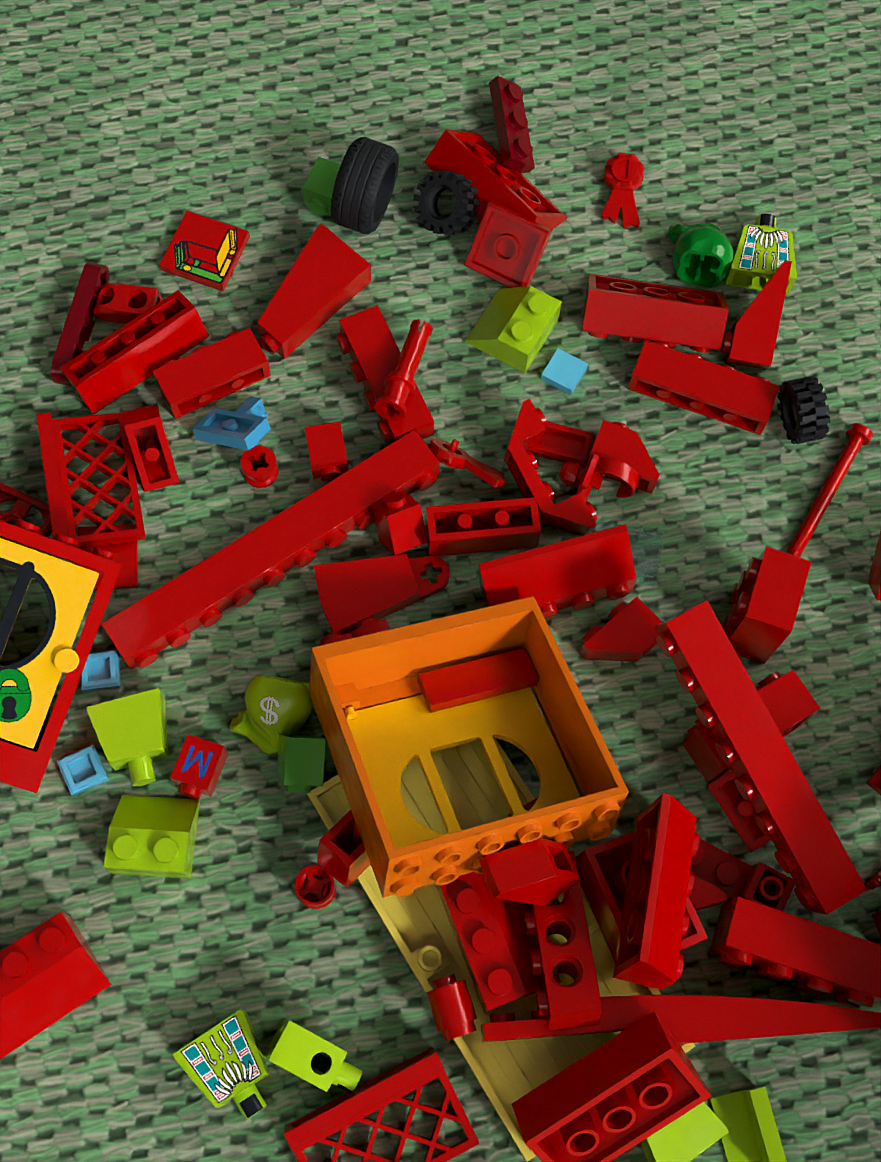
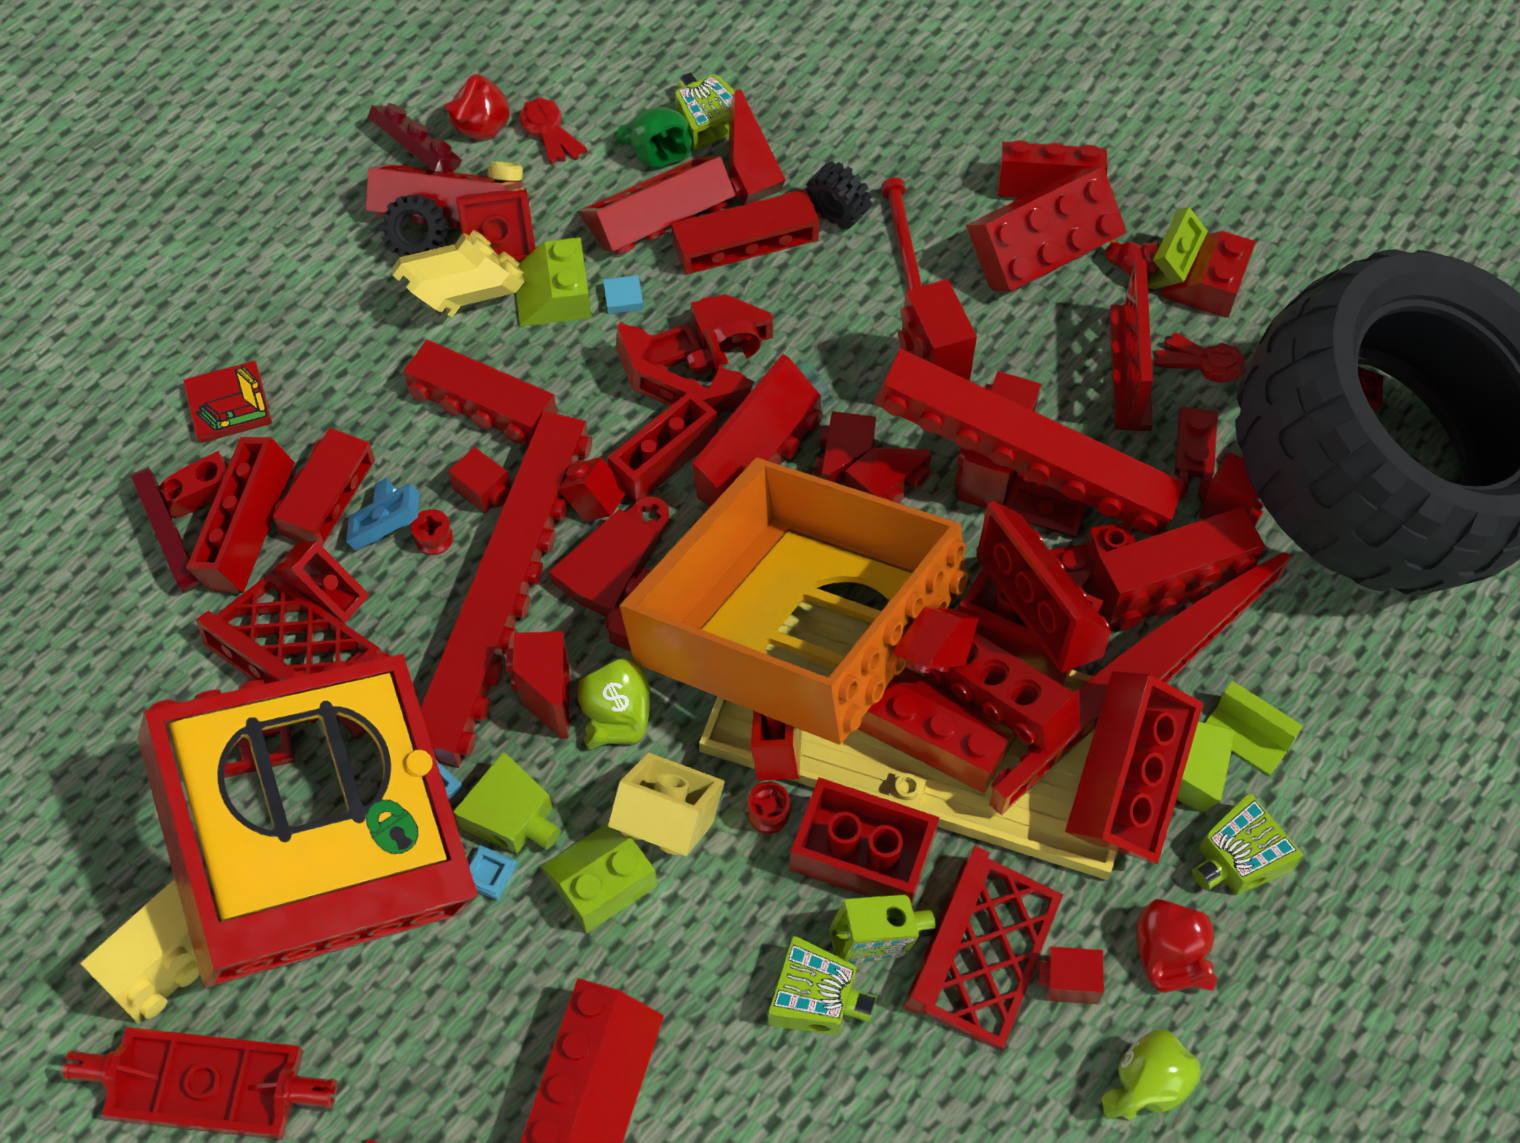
camera: 35 degrees left, 10 degrees down
(198, 767) = (589, 791): red brick -> none
(234, 652) = (542, 677): none -> red slope
(237, 826) = (666, 804): none -> light yellow brick
(300, 762) = (674, 719): bright green brick -> none
(313, 291) = (358, 367): red slope -> none
(320, 186) = (295, 282): bright green brick -> none
(357, 977) = (863, 842): none -> red brick
(364, 185) = (335, 254): black tyre -> none
(400, 381) = (501, 379): red pin -> none
(445, 267) = (459, 274): none -> light yellow brick
(451, 1007) = (957, 802): red brick -> none
(456, 458) = (596, 414): red piece -> none
(477, 680) = (762, 557): red tile -> none
(558, 201) = (505, 171): none -> light yellow tile
(578, 133) = (478, 109): none -> red piece
(633, 679) = (885, 469): none -> red slope

